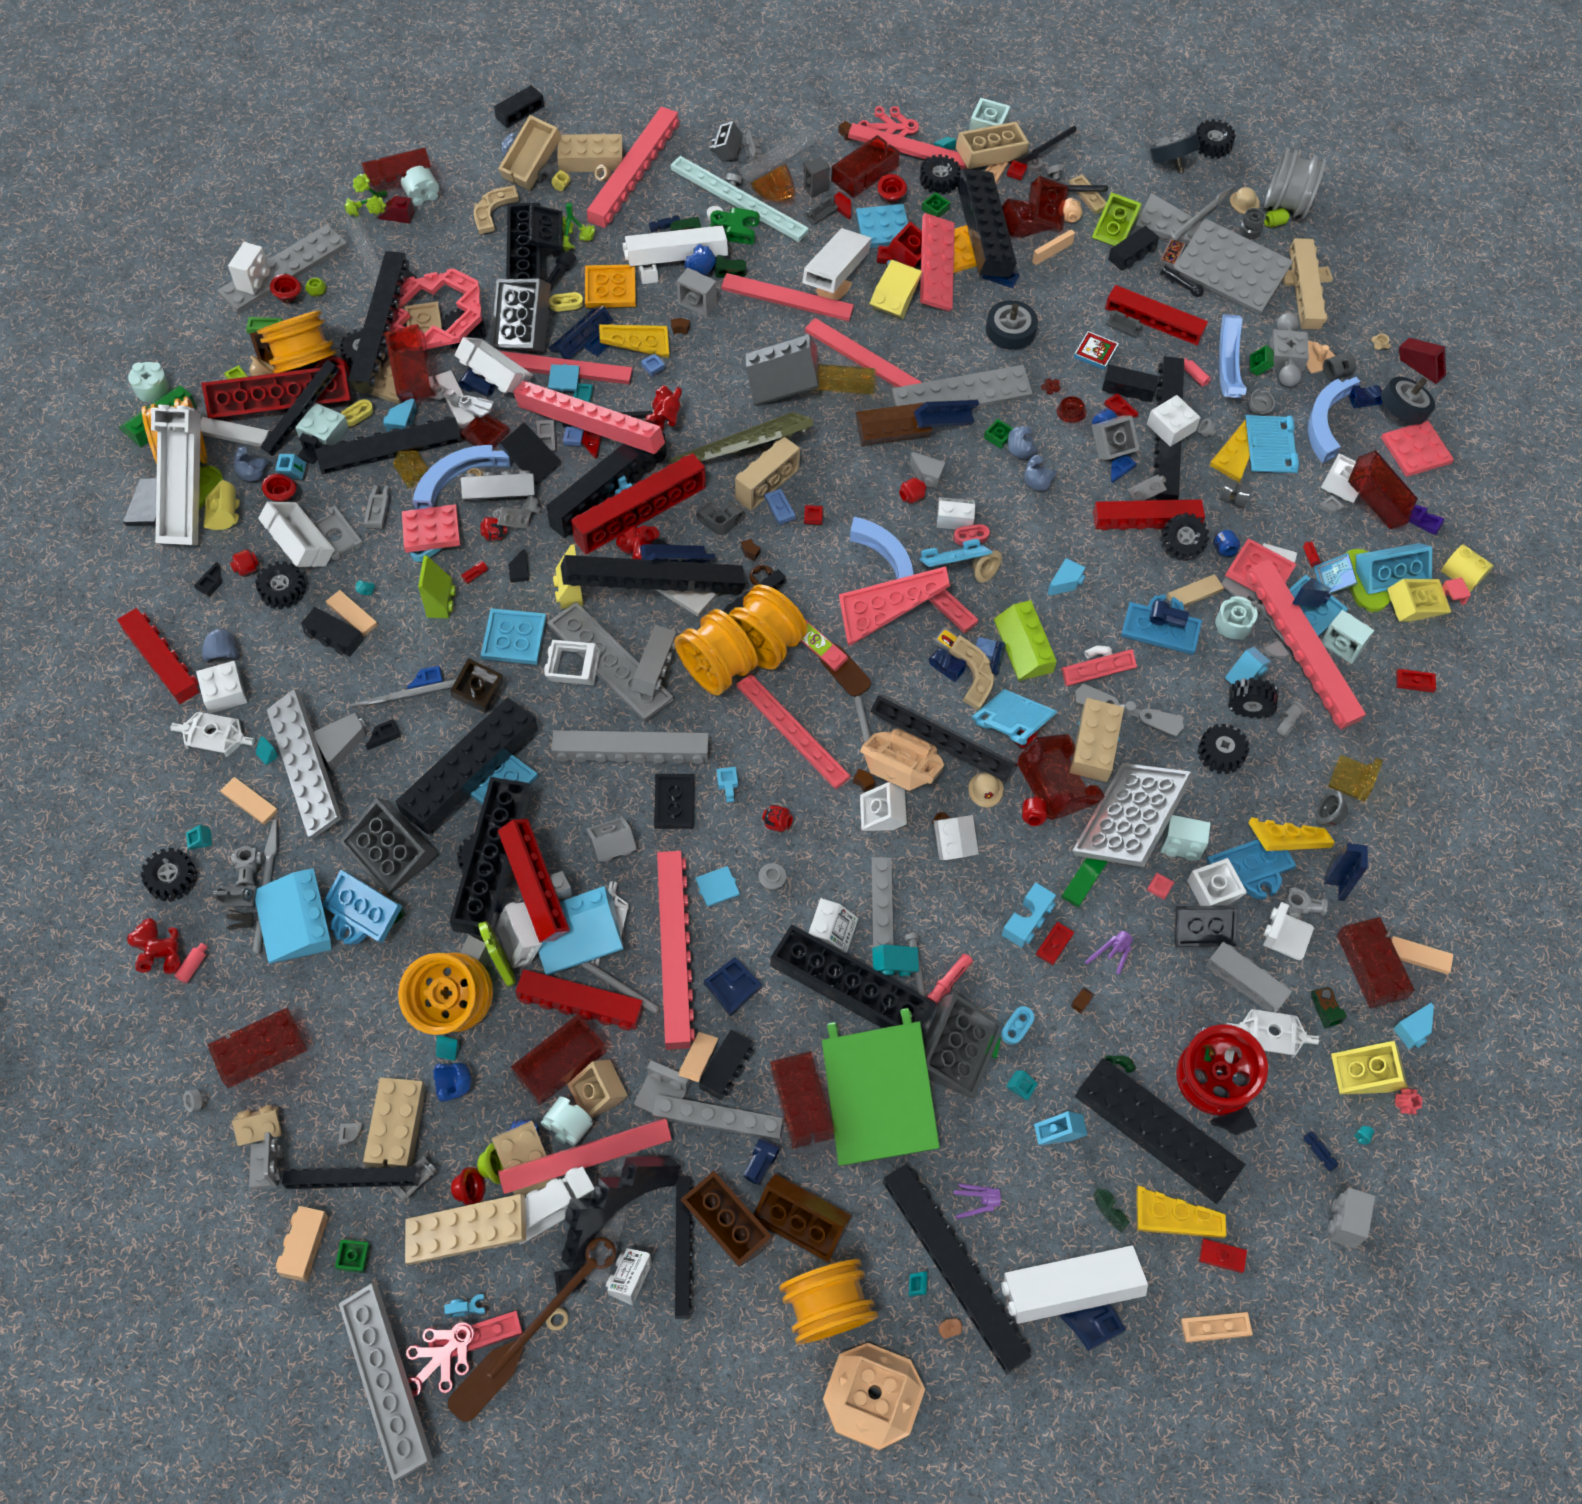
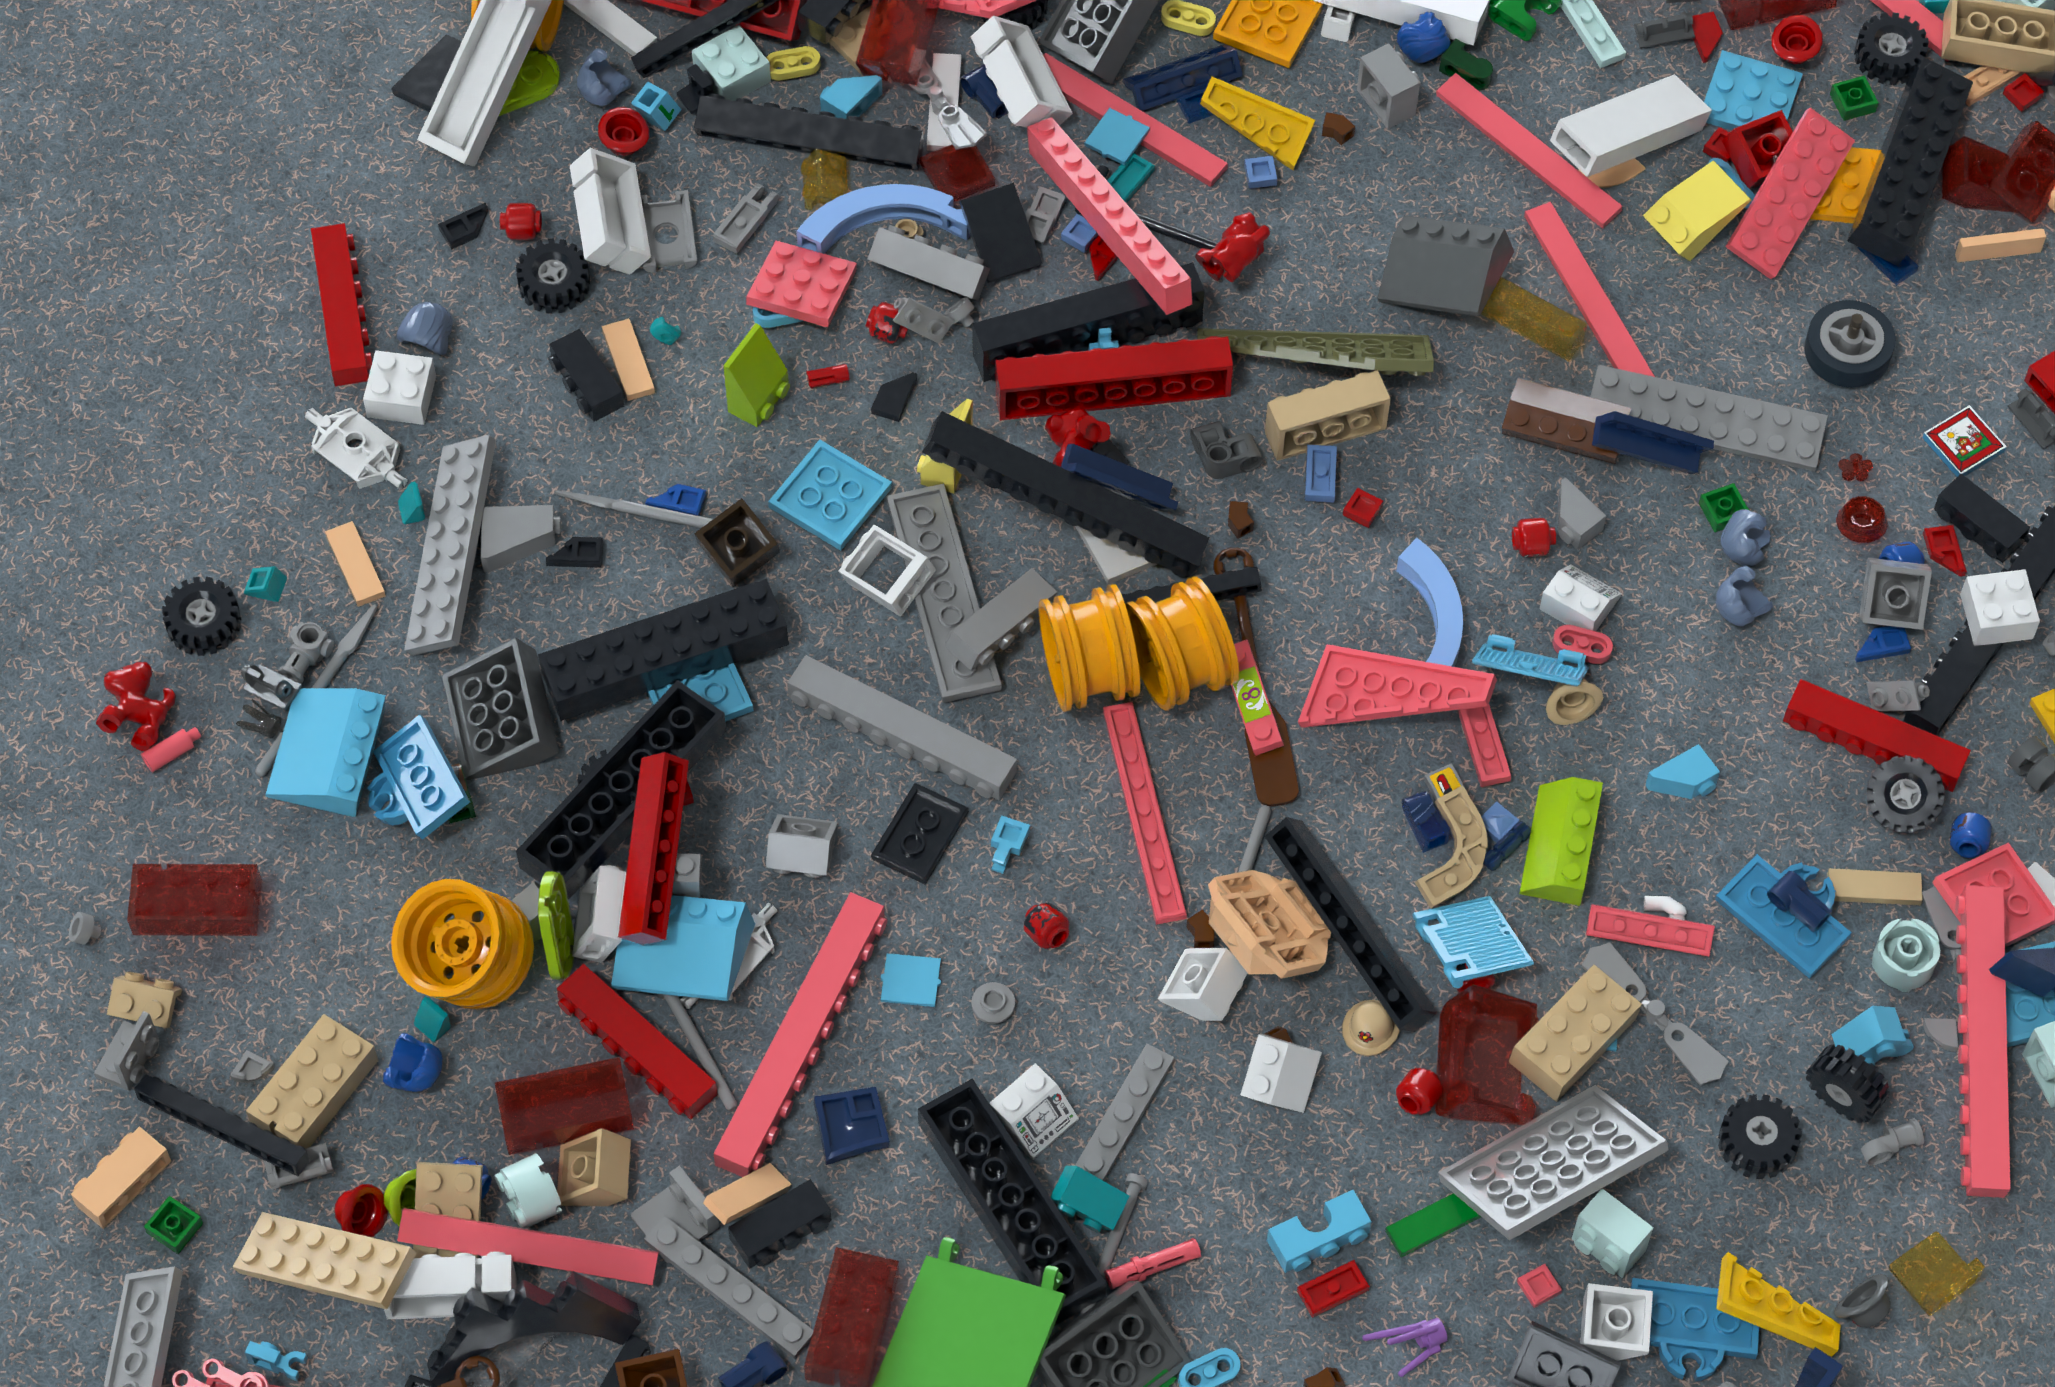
camera: 30 degrees right, 0 degrees up
(221, 507) = (531, 125): light yellow brick -> none

